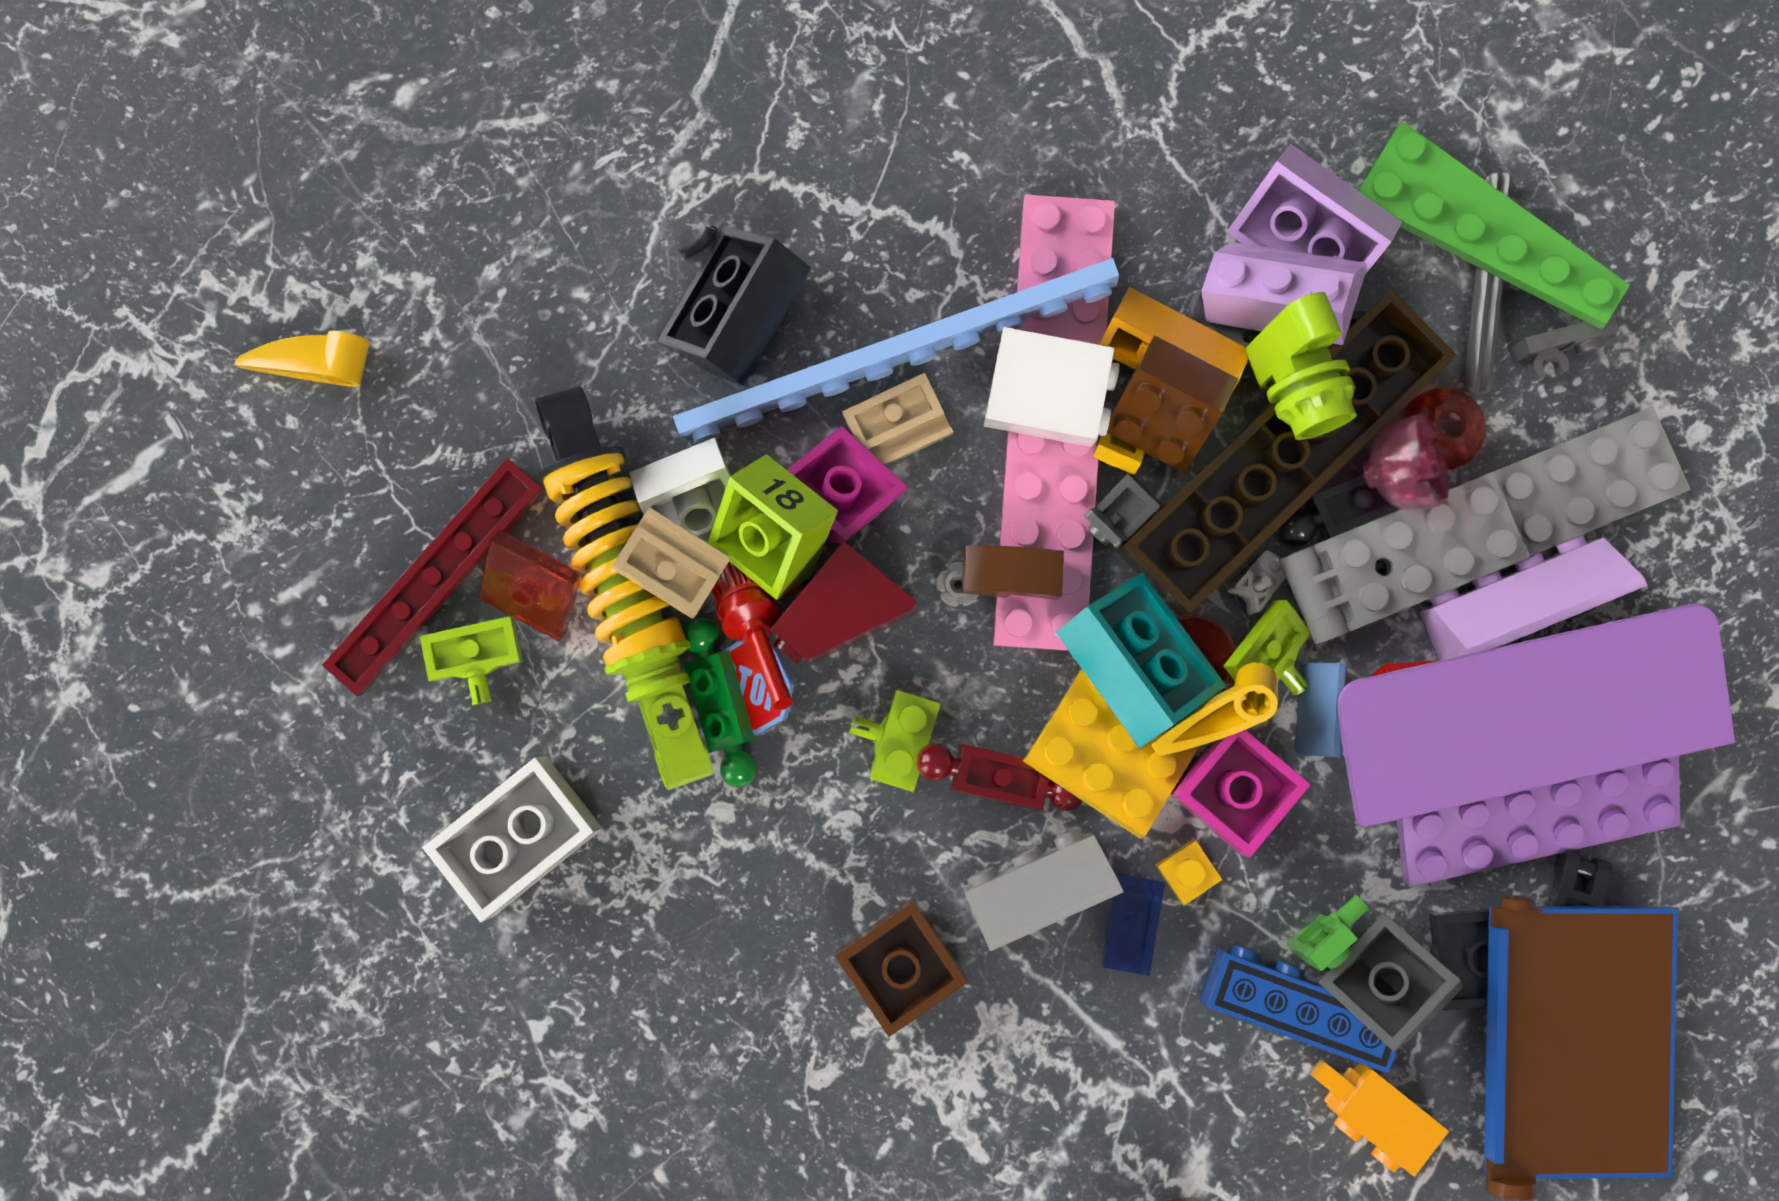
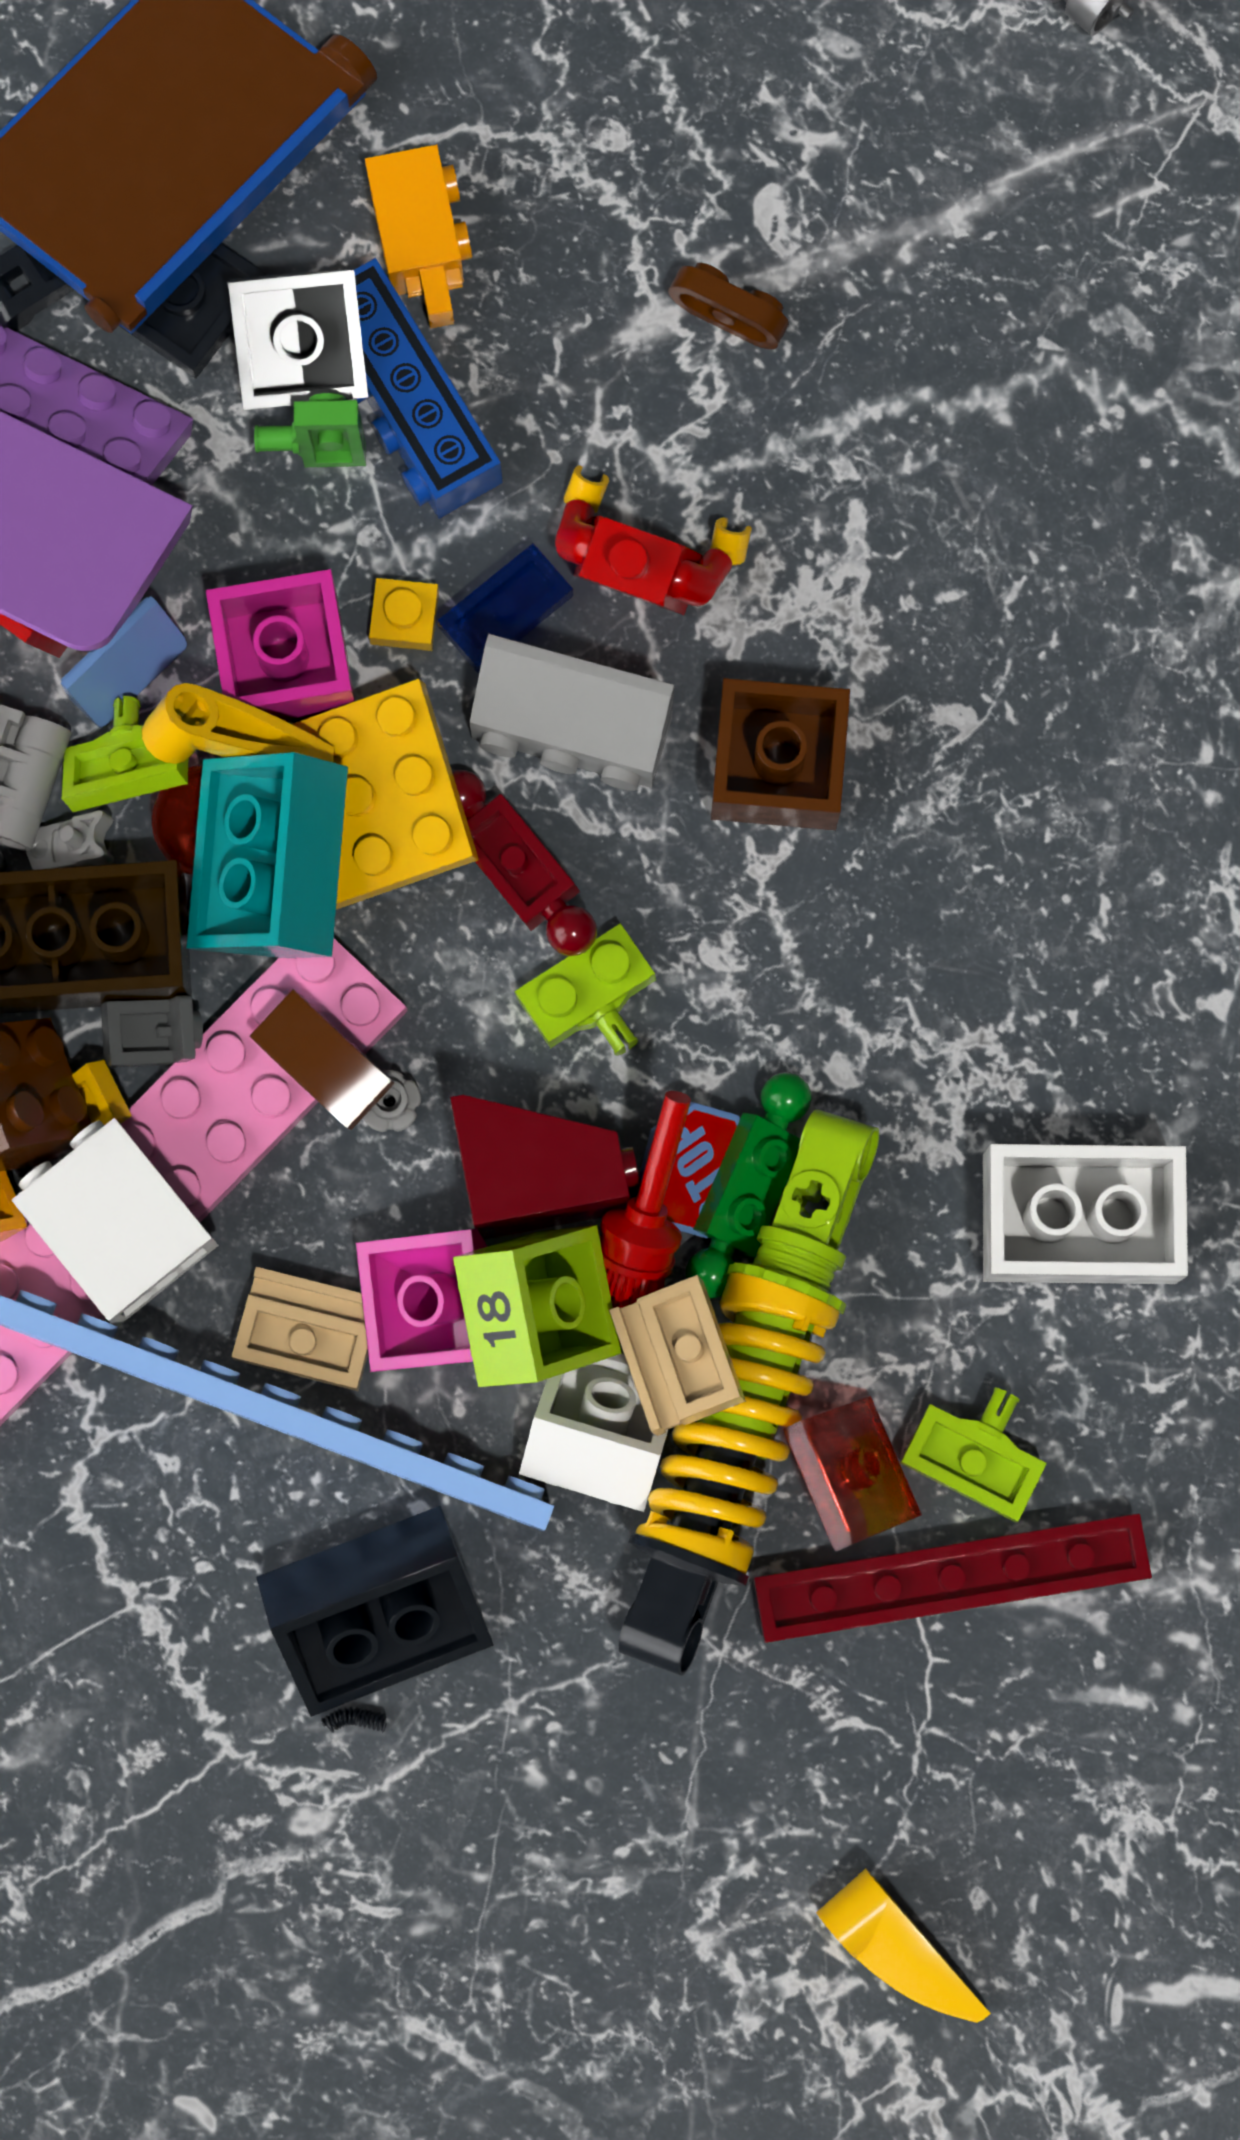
camera: 145 degrees left, 5 degrees down
(1078, 1014) = (639, 561): none -> red torso

